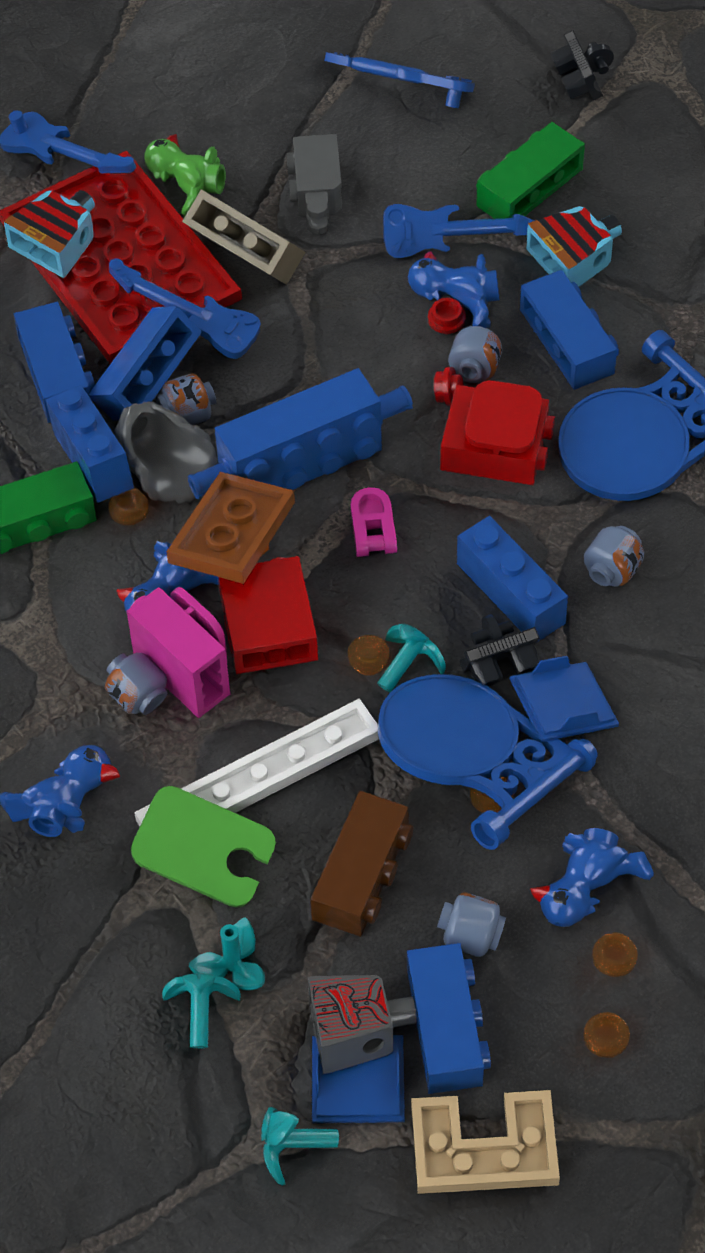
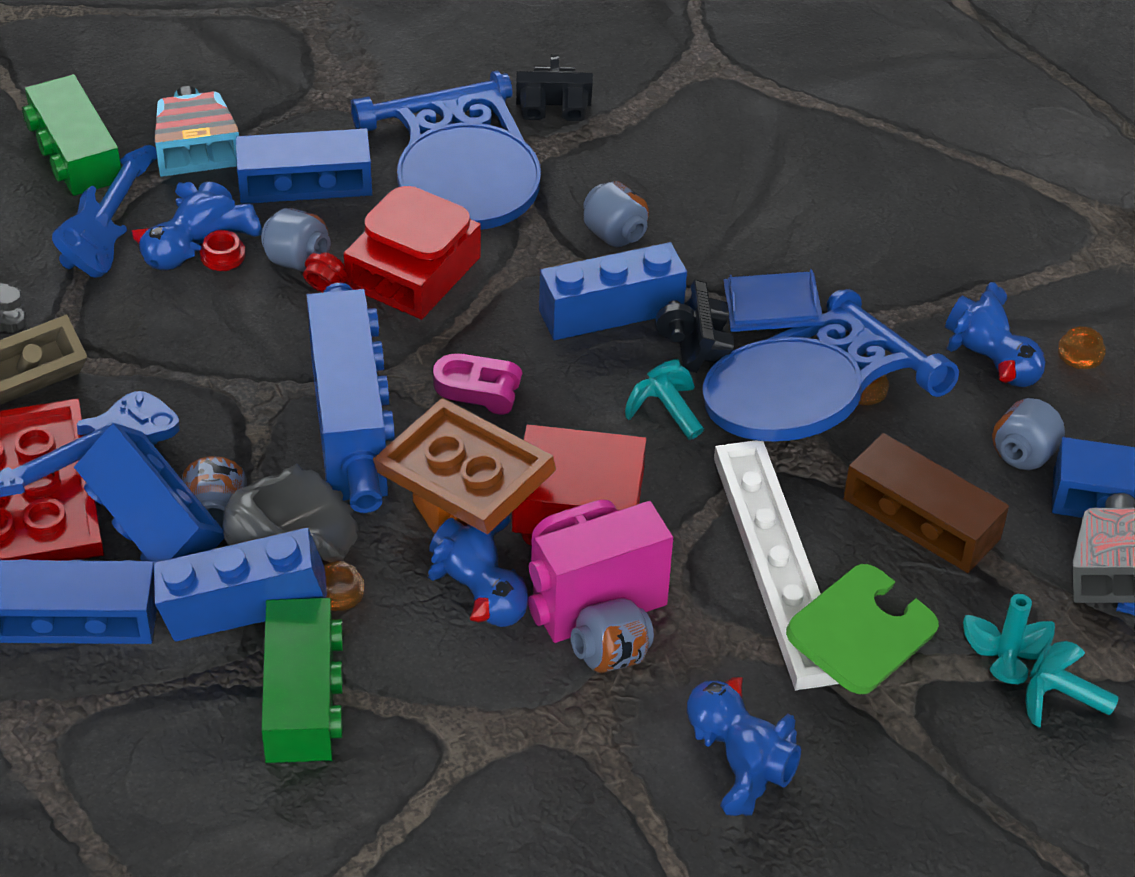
camera: 75 degrees left, 10 degrees down
(368, 654) = (655, 427): clear orange plate -> none

